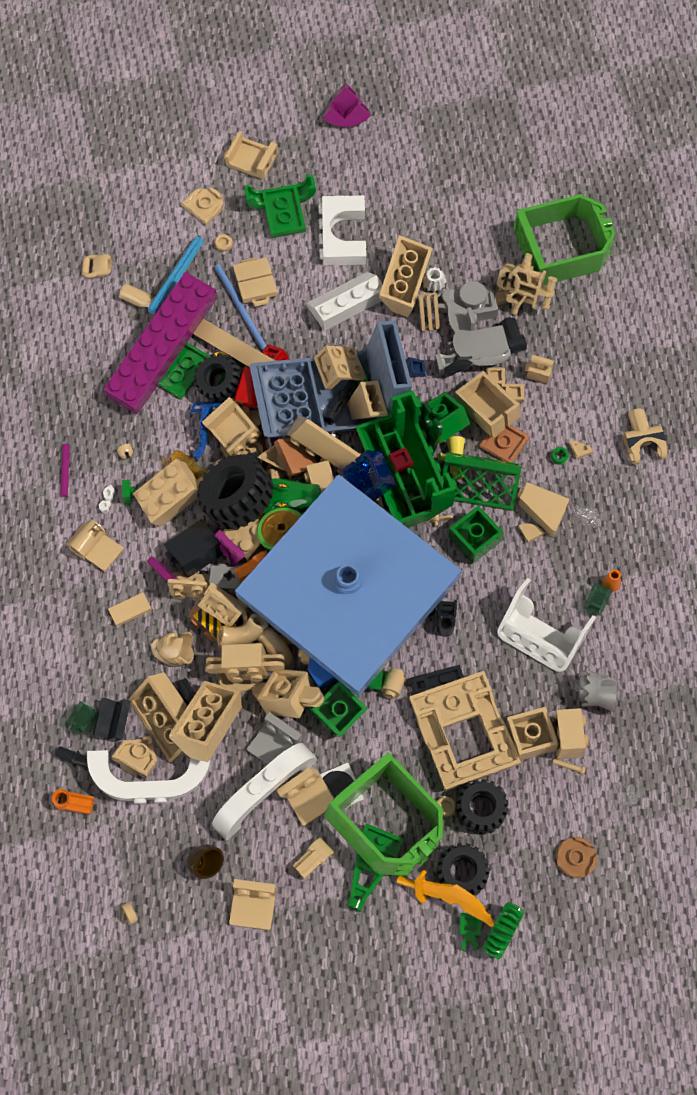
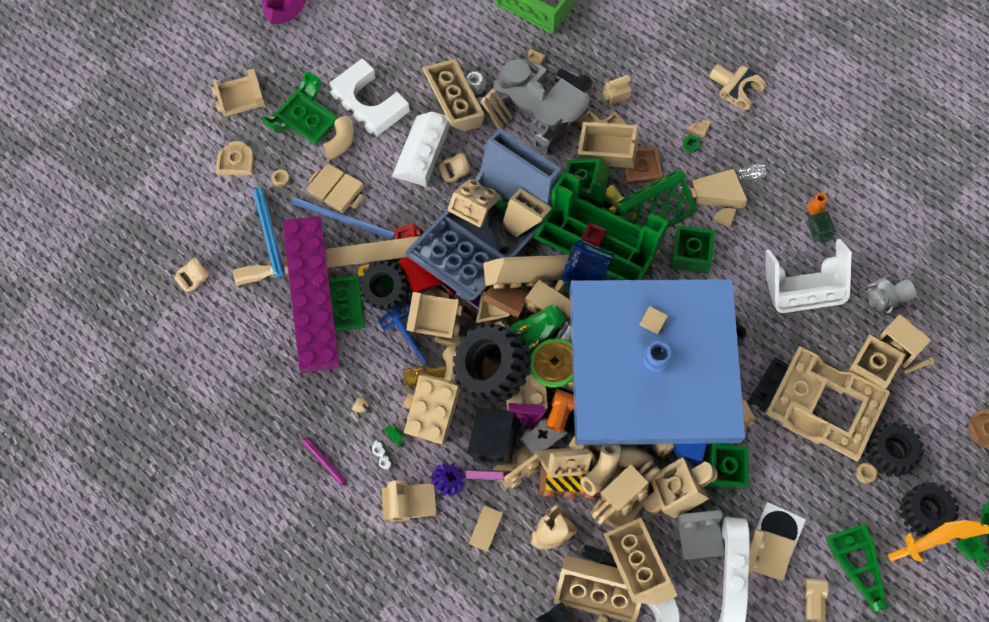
camera: 40 degrees left, 0 degrees up
(138, 559) = (448, 479): none -> dark purple gear
(293, 247) = (342, 139): none -> tan cylinder
(361, 335) = (459, 165): none -> tan piece
(361, 844) = (875, 486): bright green container -> none
(370, 550) = (653, 320): none -> tan tile
(525, 285) = (551, 34): tan piece -> none

